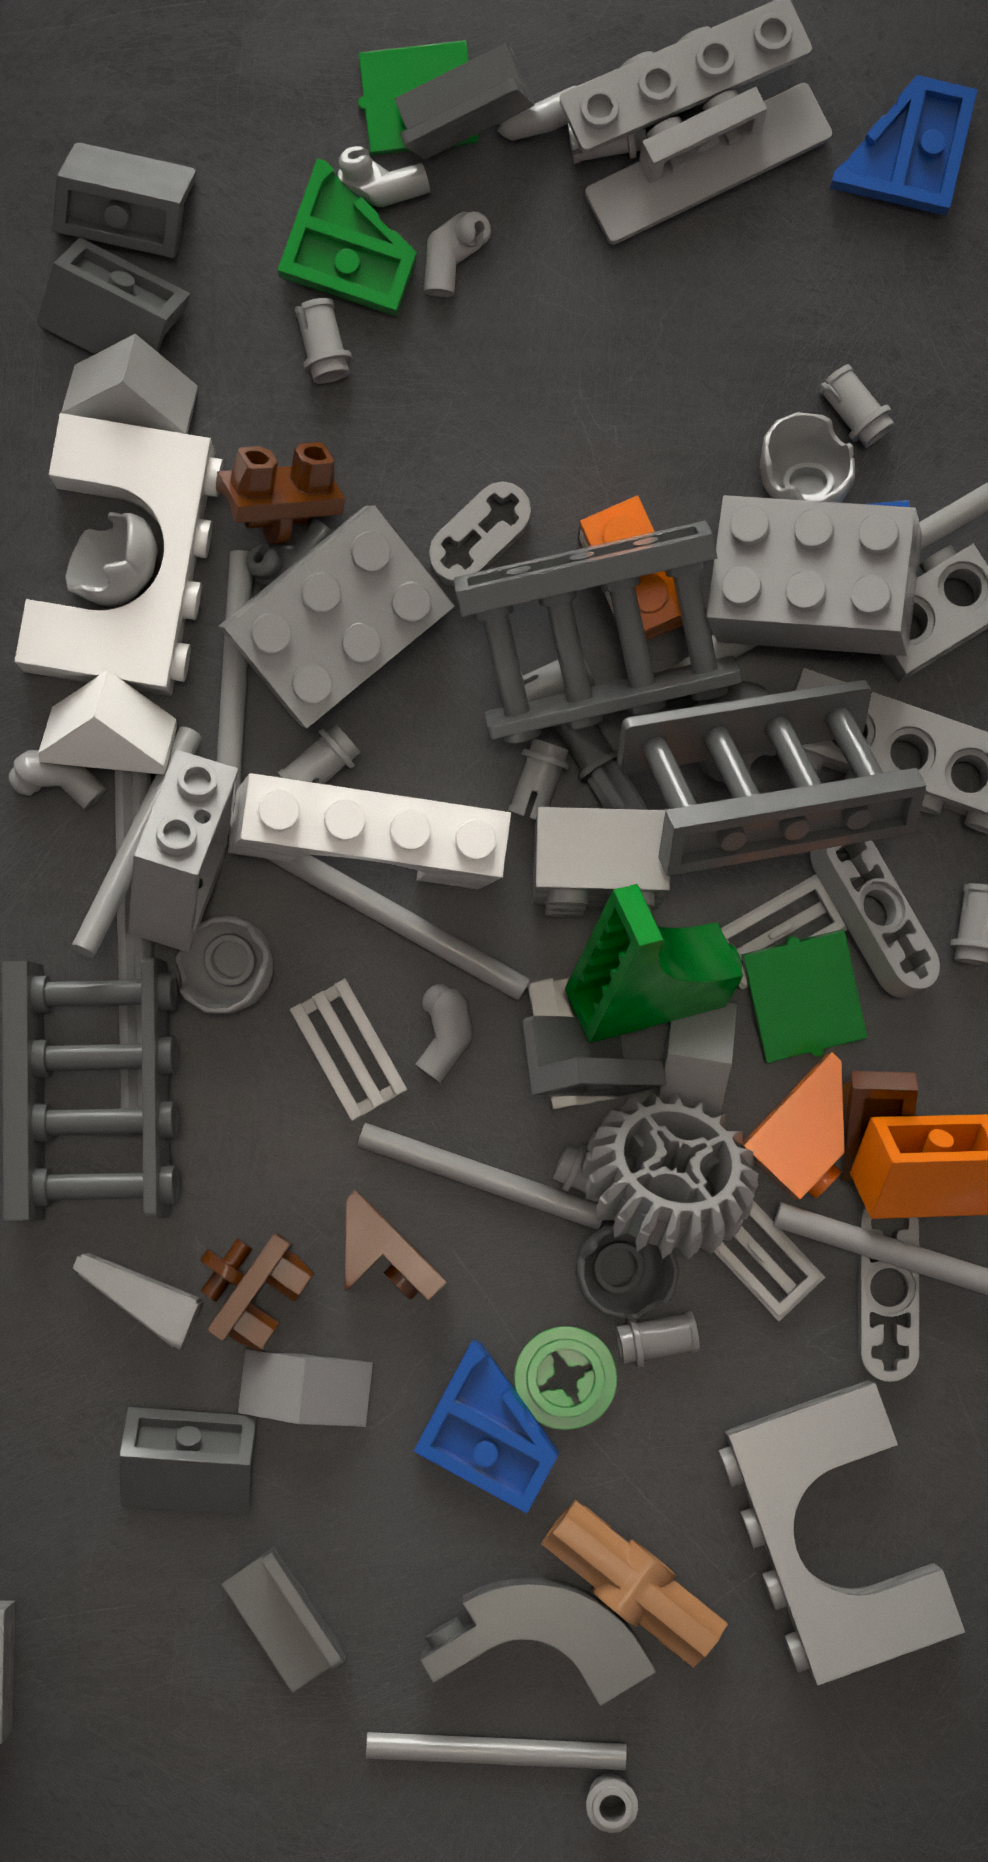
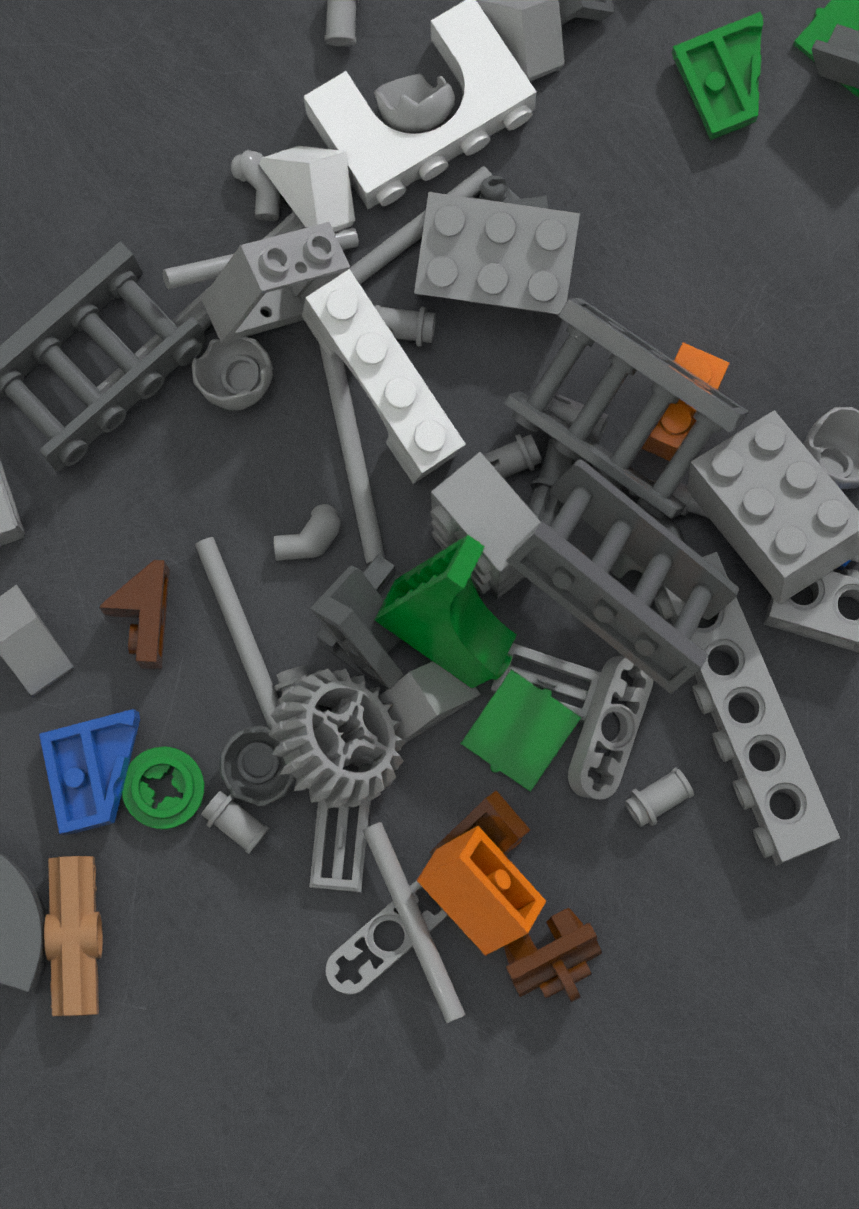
camera: 55 degrees right, 5 degrees down
(239, 1315) = (33, 559): reddish brown hips -> none
(284, 495) = (540, 161): reddish brown hips -> none
(322, 341) = (649, 119): light grey pin -> none
(322, 1003) = (262, 450): light grey tile -> none
(377, 184) = (778, 60): light grey arm -> none
(451, 245) = (779, 133): light grey arm -> none
(469, 523) = (627, 287): light grey beam -> none
(804, 1133) = (436, 800): orange slope -> none
(833, 1625) = (151, 1079): light grey arch -> none

